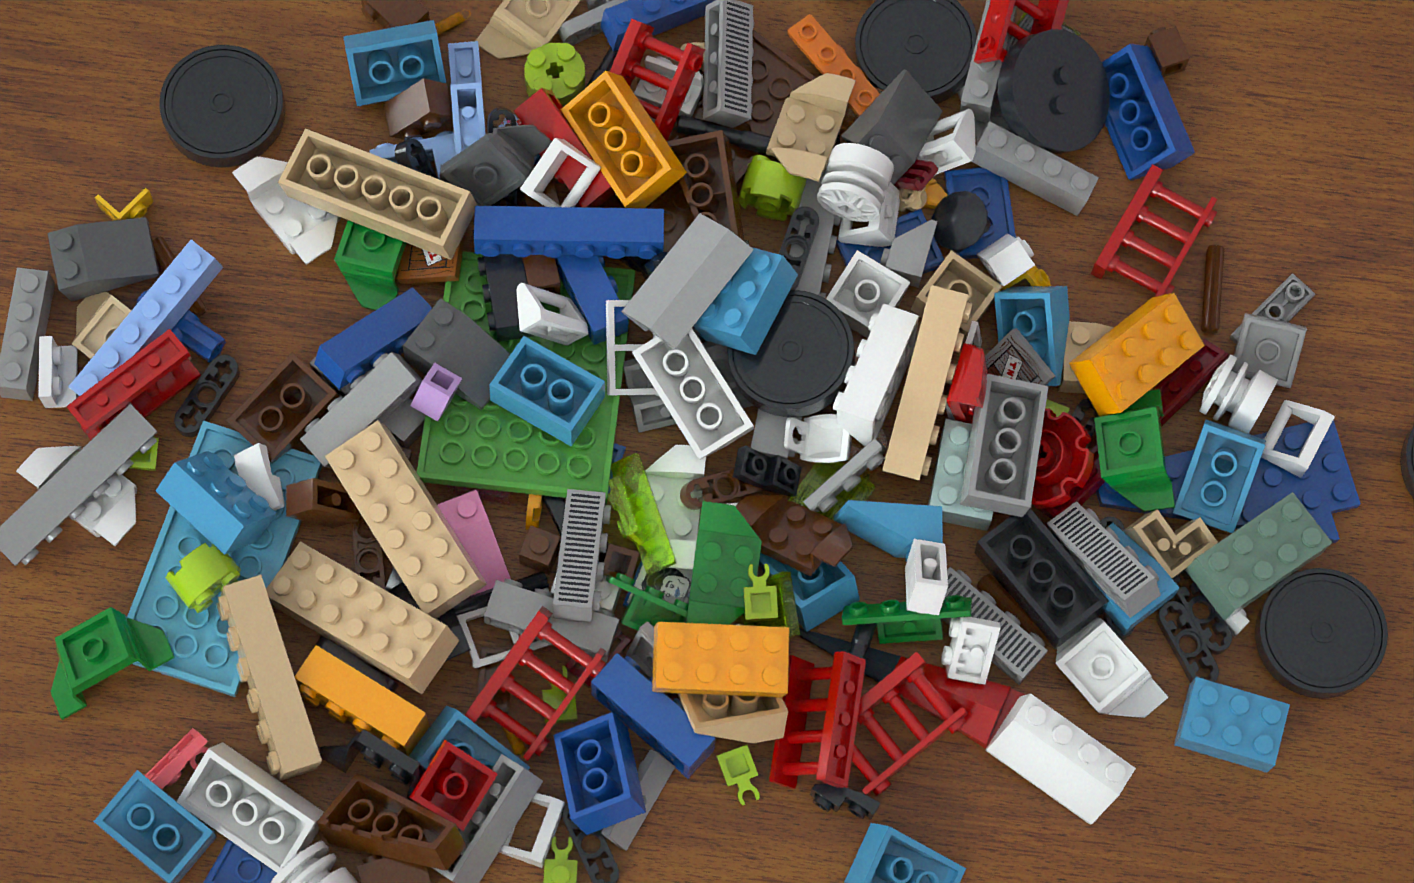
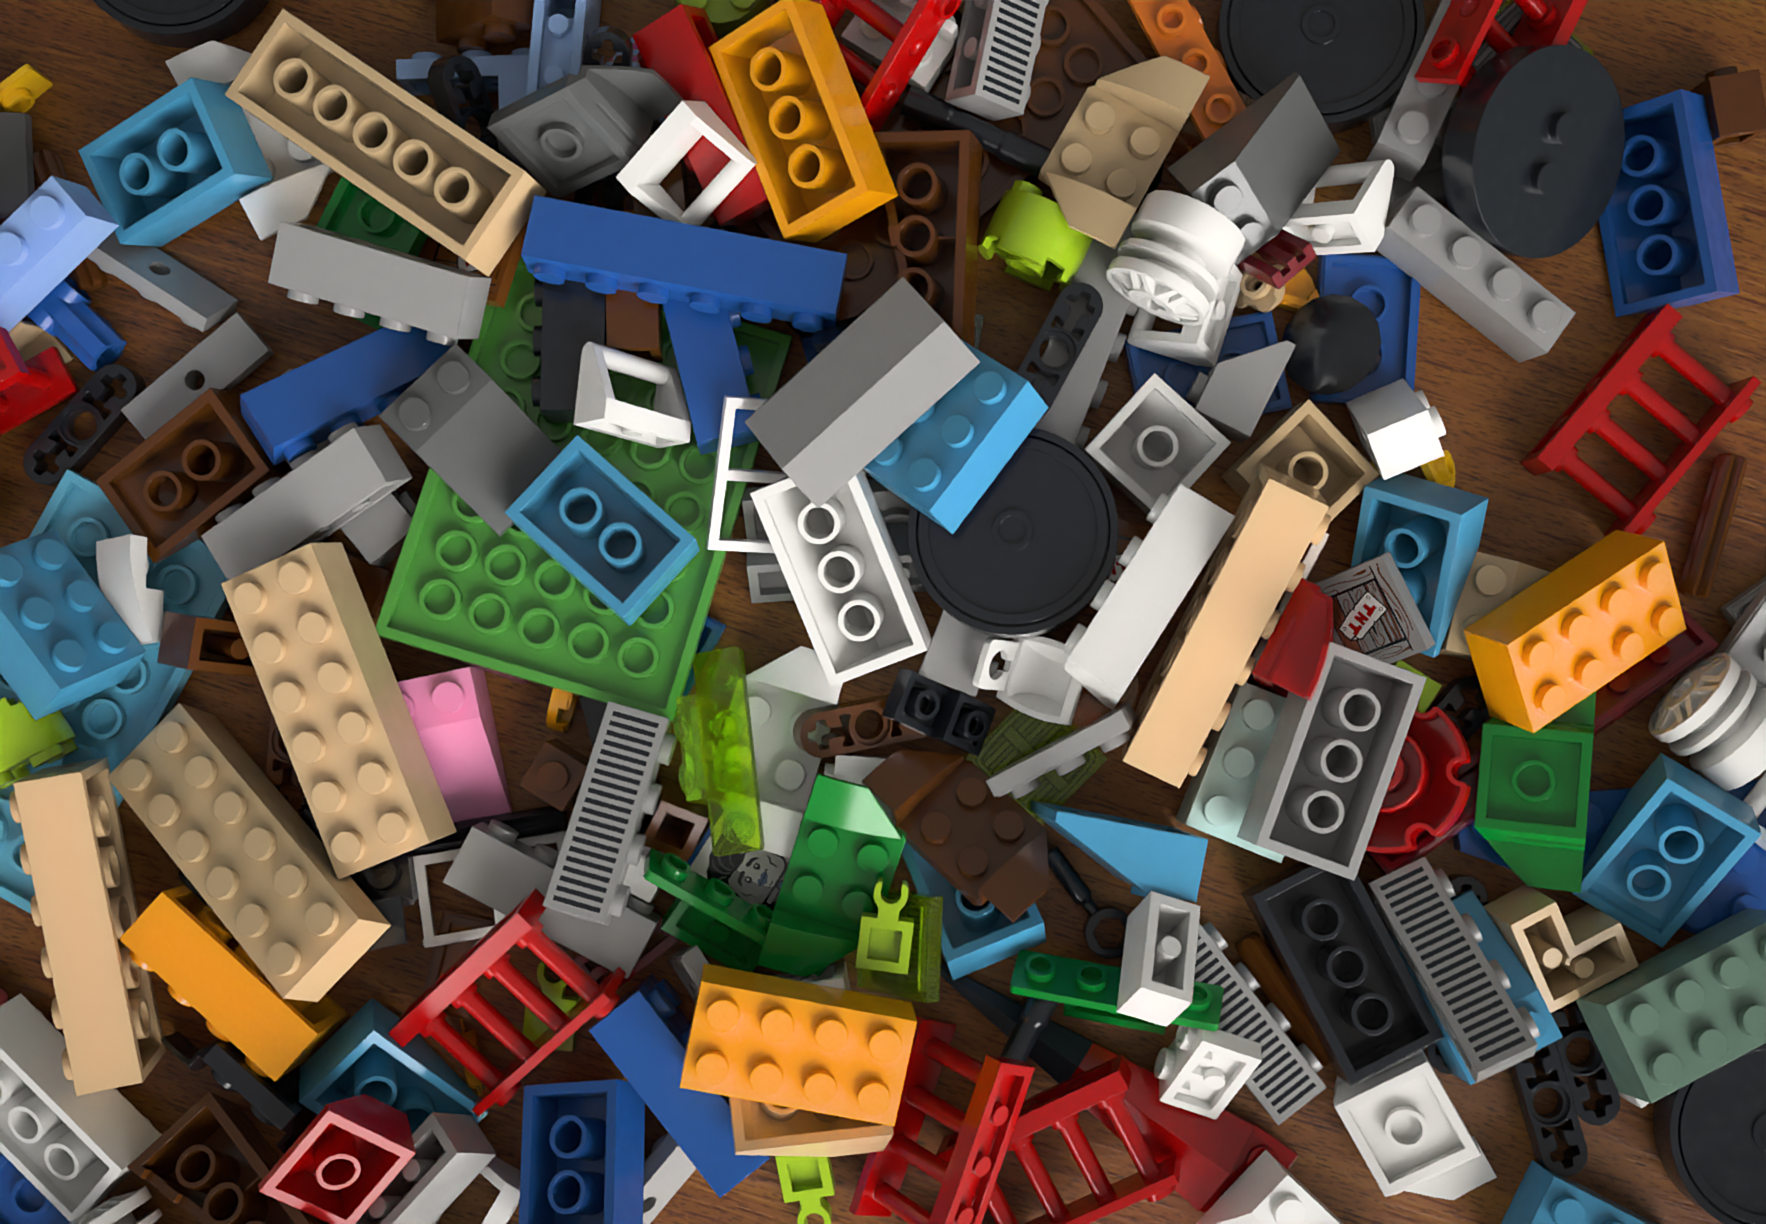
camera: 15 degrees right, 15 degrees up
(245, 302) = (165, 282): none -> light grey tile
(248, 228) = (175, 163): none -> dark azure brick
(290, 337) = (222, 358): none -> light grey tile
(386, 273) = (379, 281): none -> light grey brick
(436, 392) = (422, 502): lavender brick -> none
(876, 571) = (1082, 896): none -> black piece

